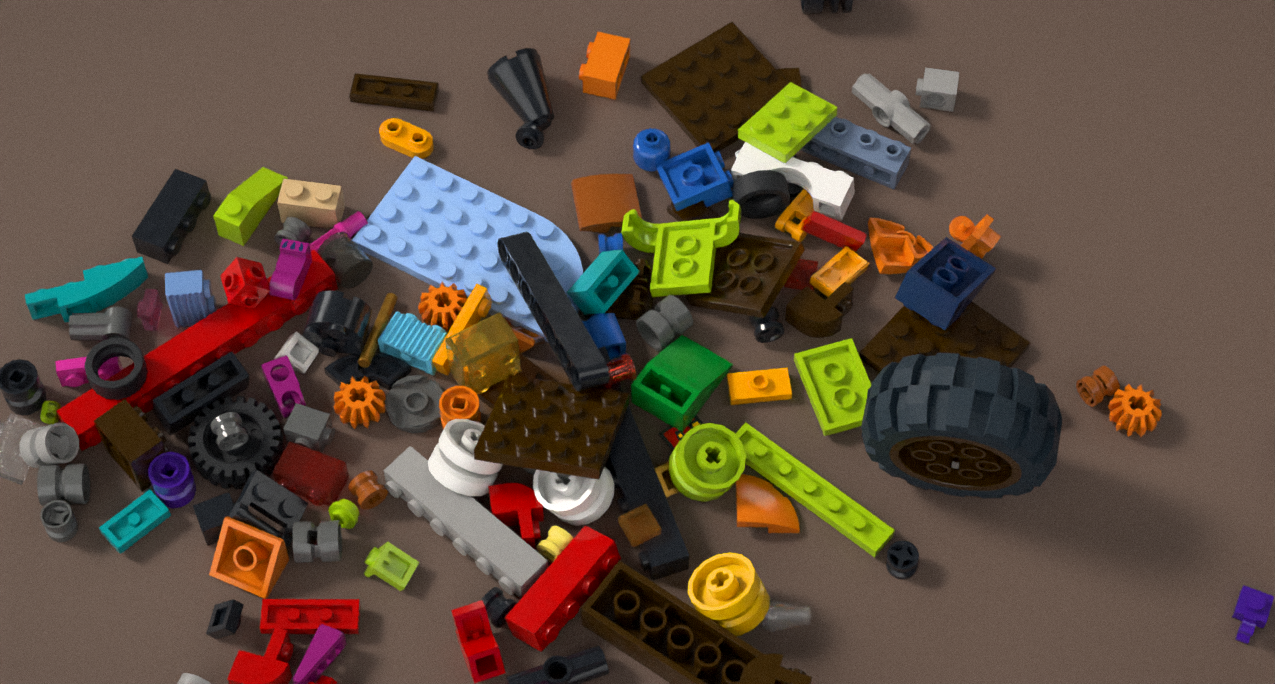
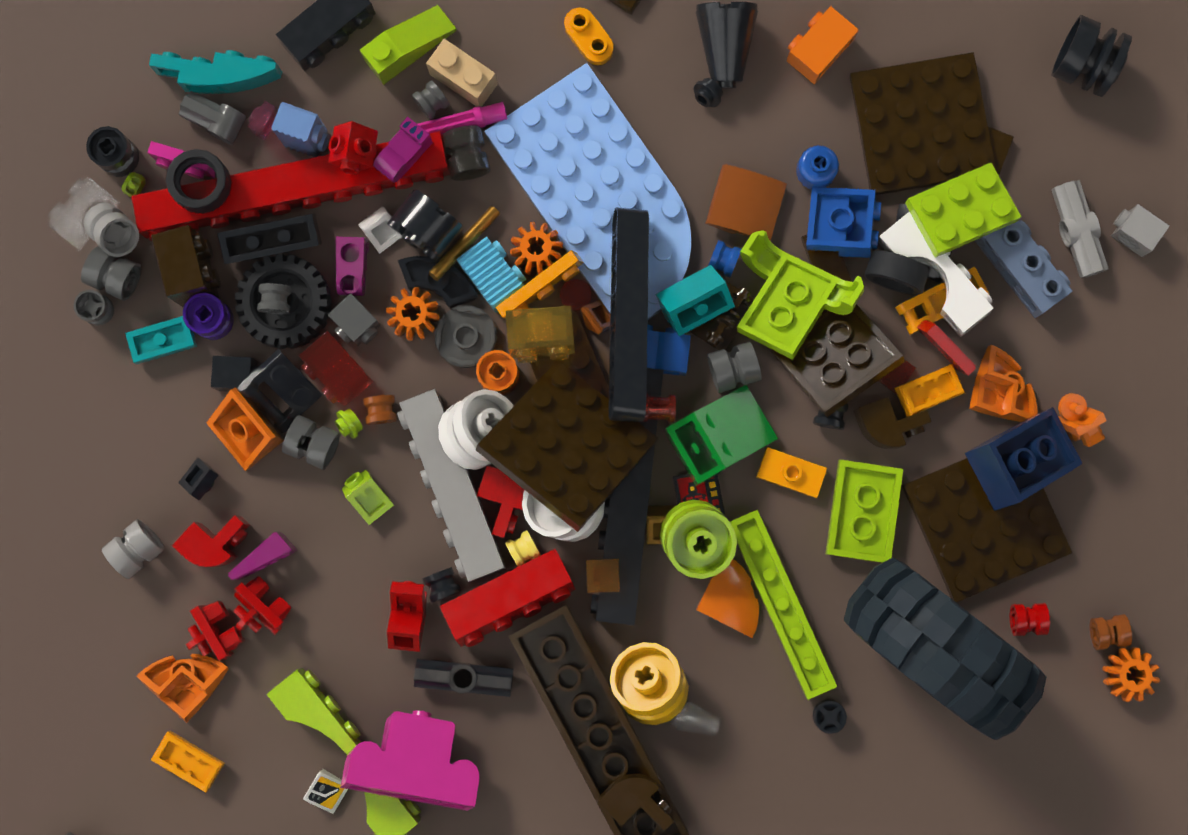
camera: 30 degrees right, 25 degrees up
(306, 615) = (274, 511): red plate -> none

